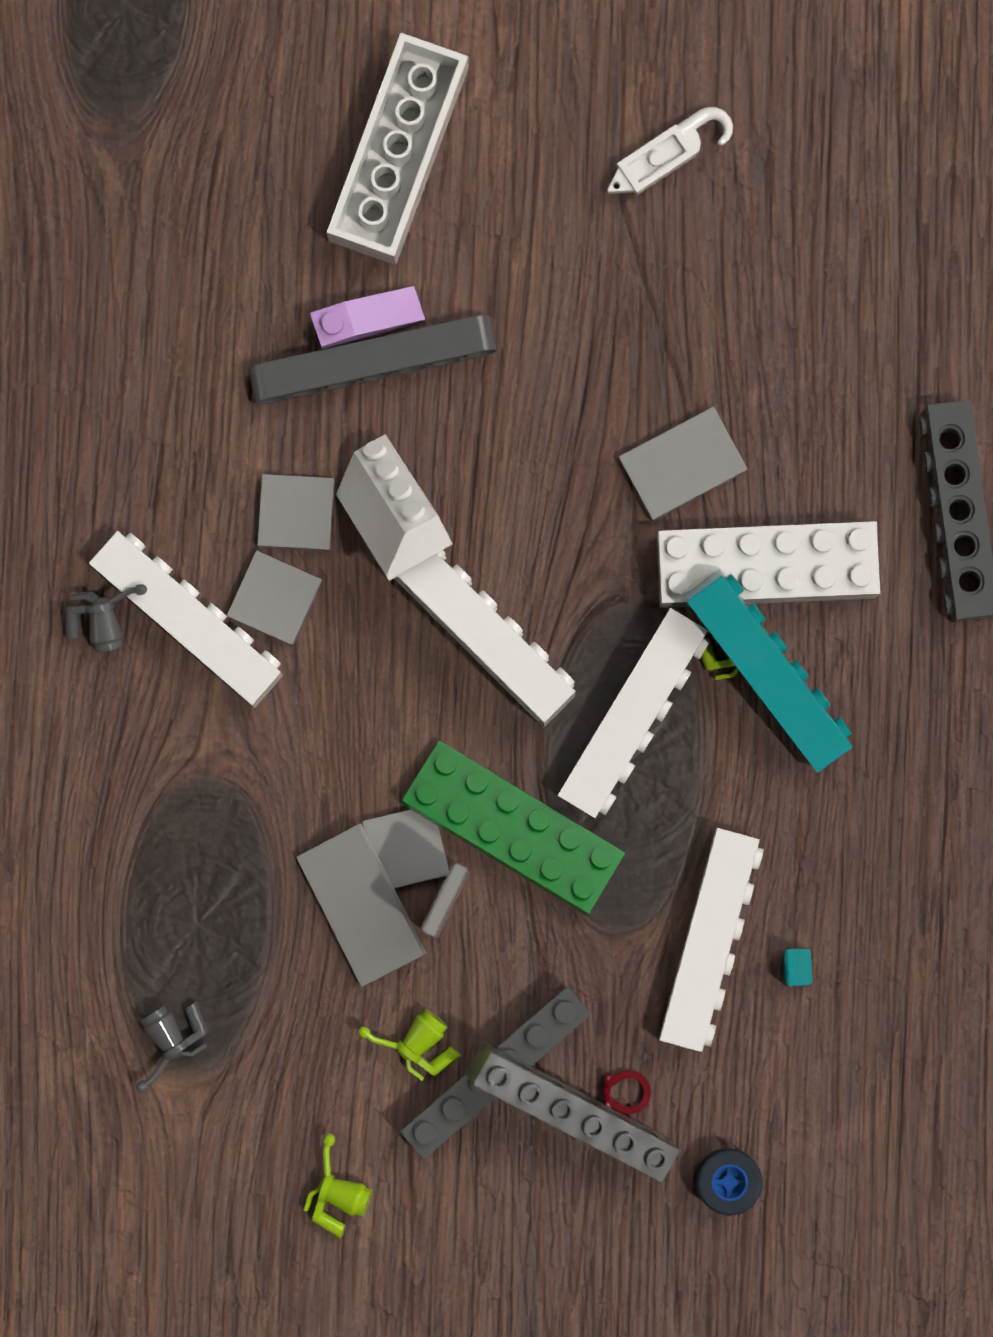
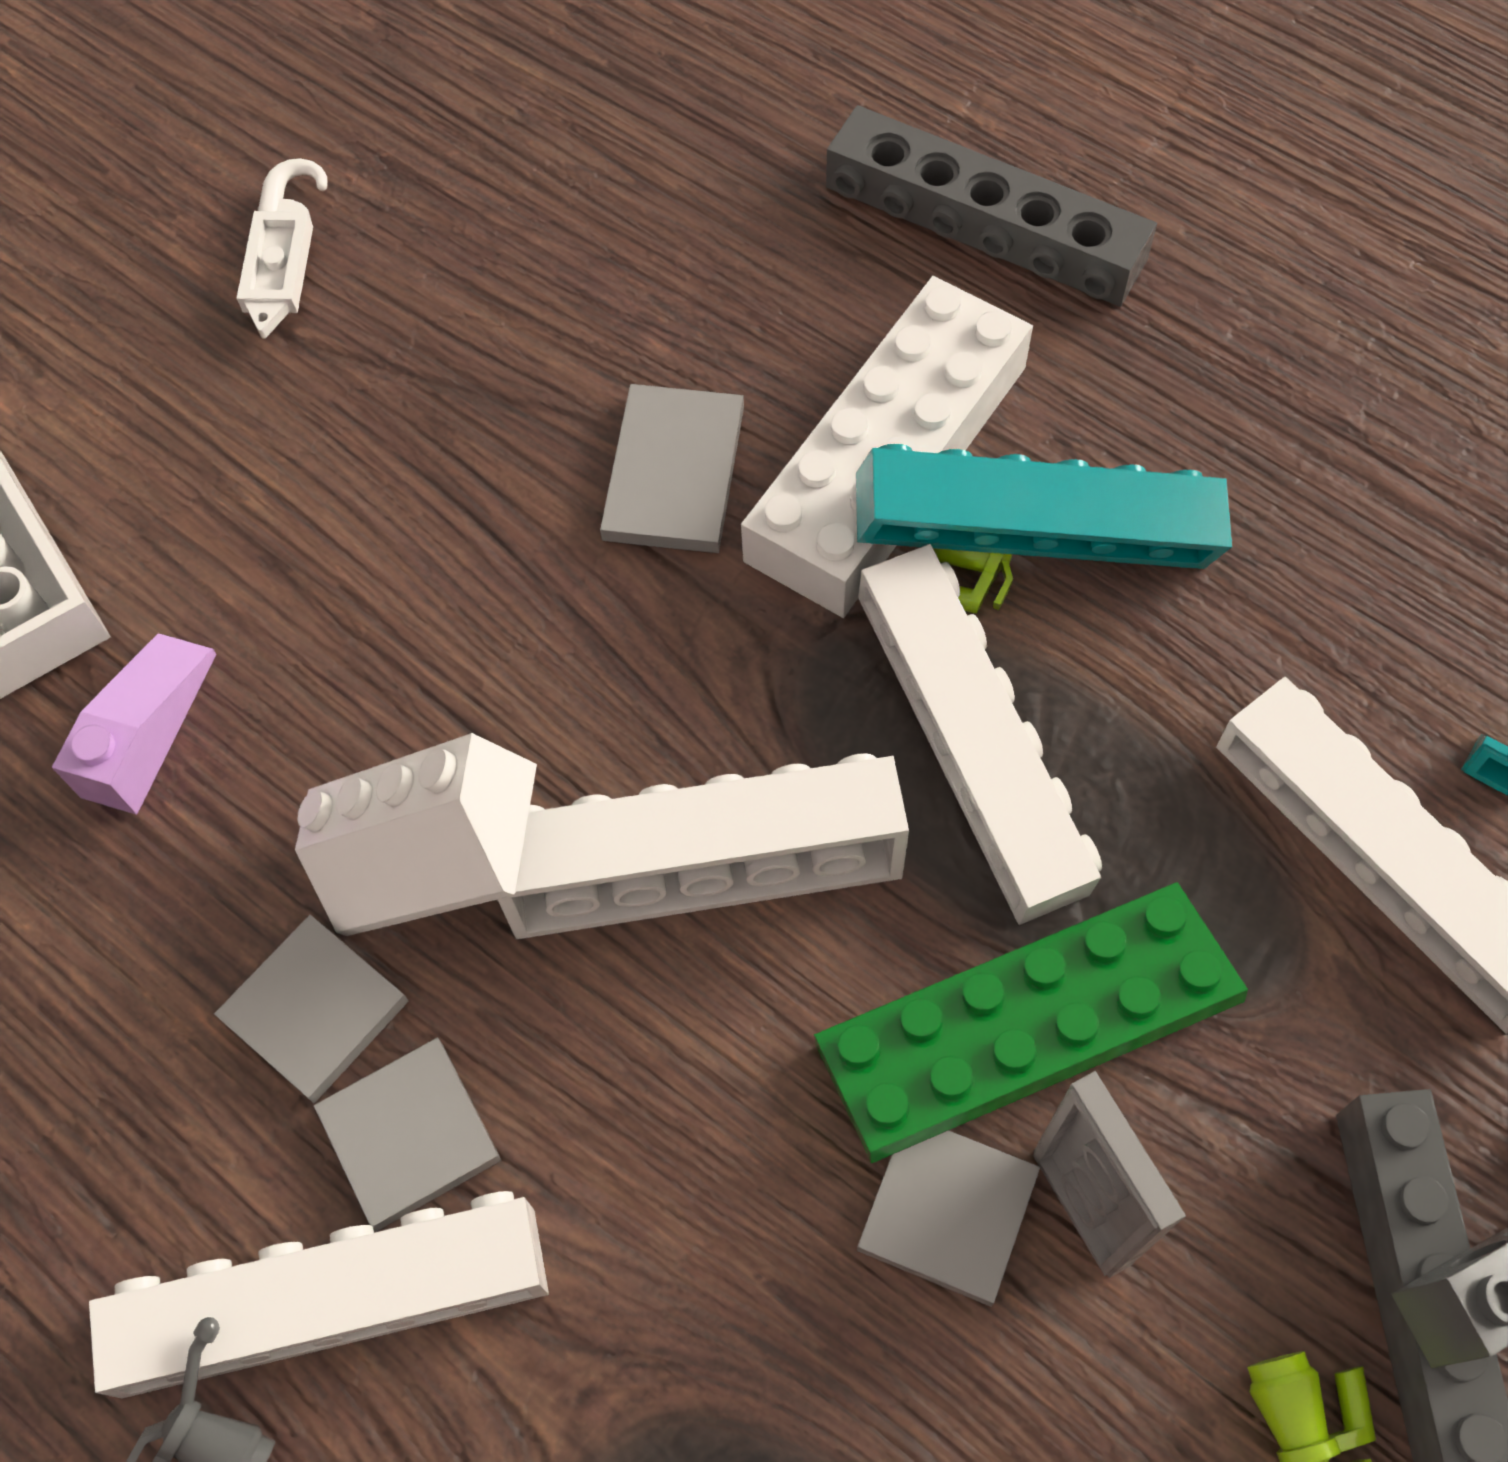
camera: 55 degrees left, 20 degrees down
(361, 905) = (1000, 1351): light grey tile -> none
(372, 359) = (192, 756): dark grey beam -> none

